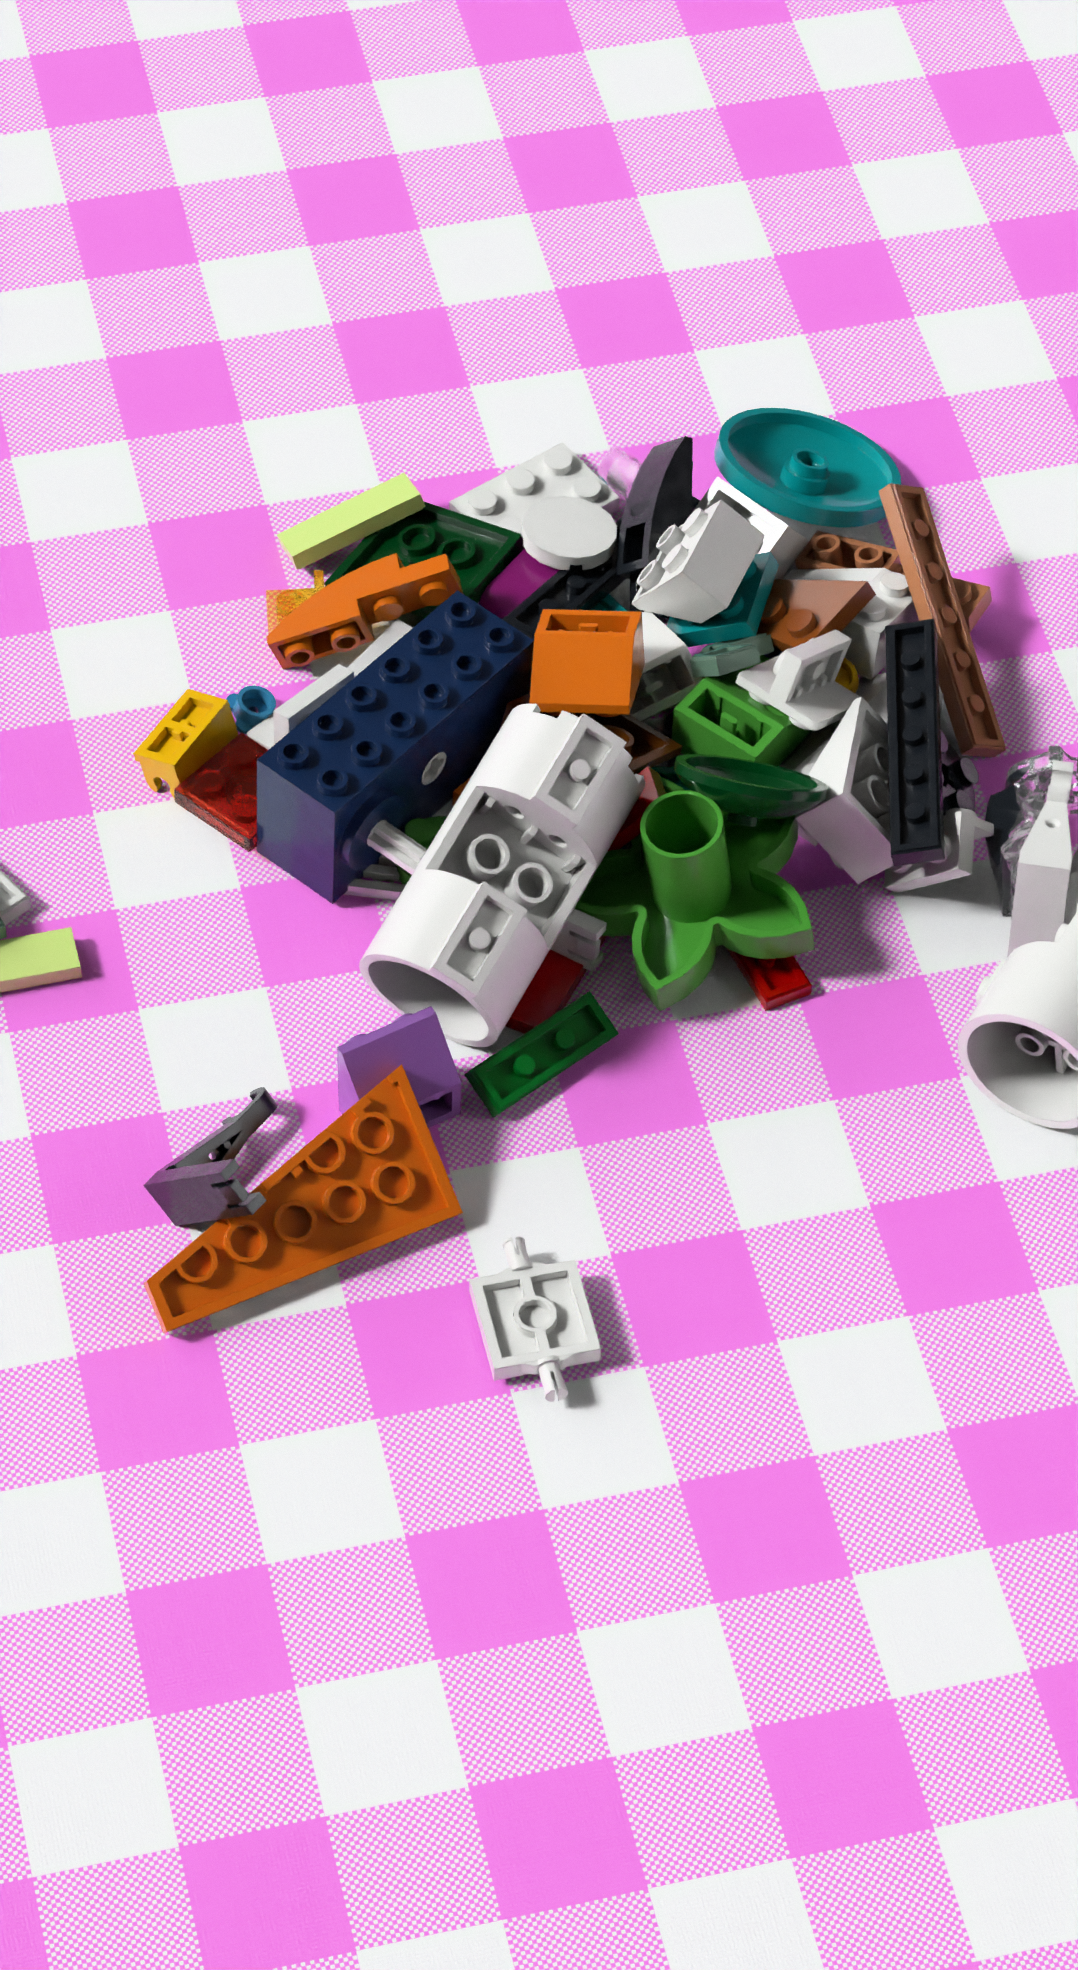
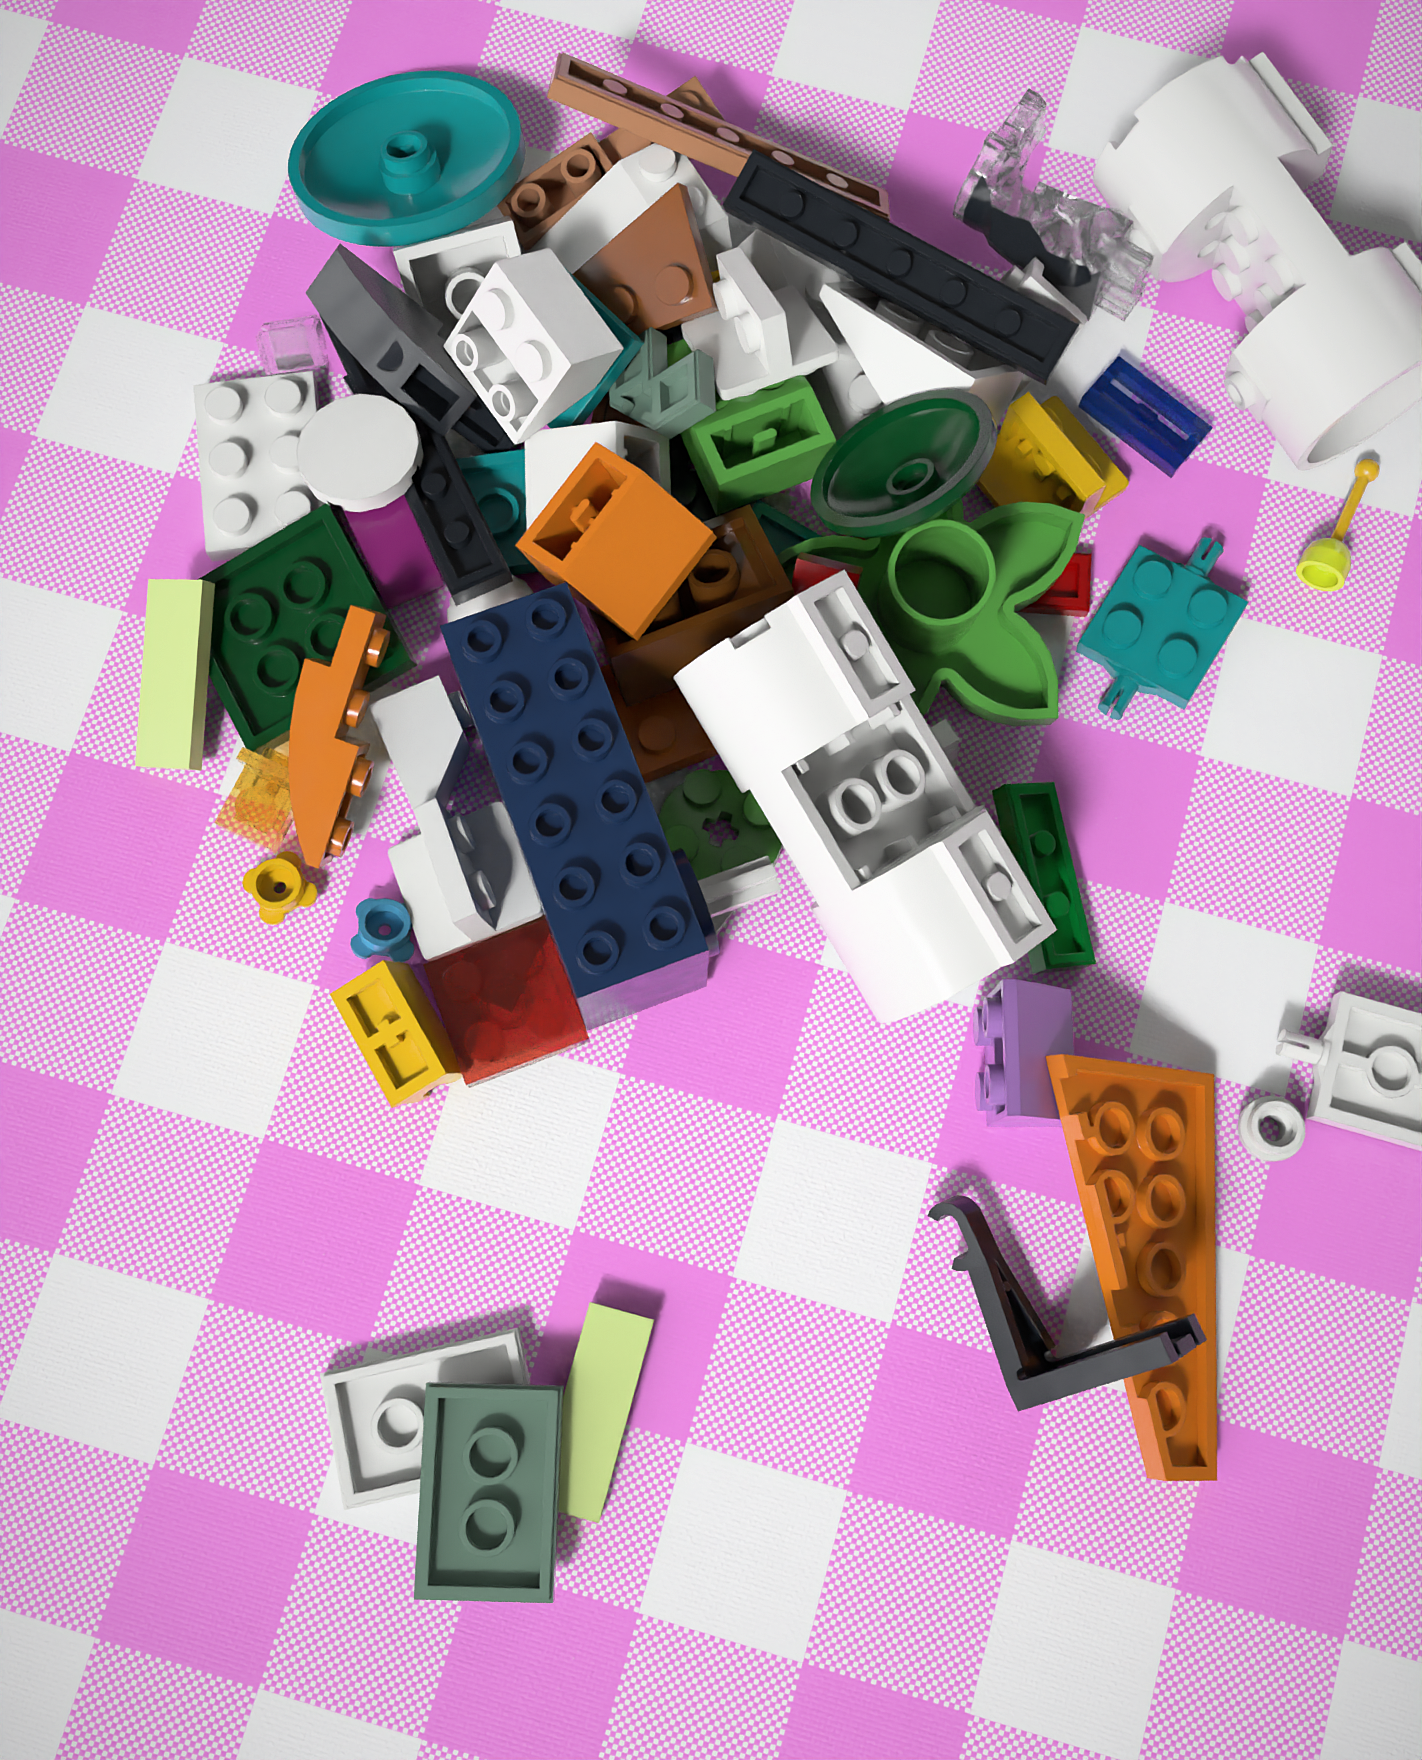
camera: 60 degrees left, 25 degrees up
(244, 644) = (264, 878): none -> yellow plate
(446, 1256) = (1290, 1126): none -> white plate
(785, 1050) = (1161, 627): none -> teal plate
(859, 926) = (1049, 459): none -> yellow bracket
(913, 1128) = (1328, 560): none -> neon yellow hinge
(943, 1008) = (1140, 425): none -> clear blue tile
(1044, 867) = (1156, 222): white hinge -> none

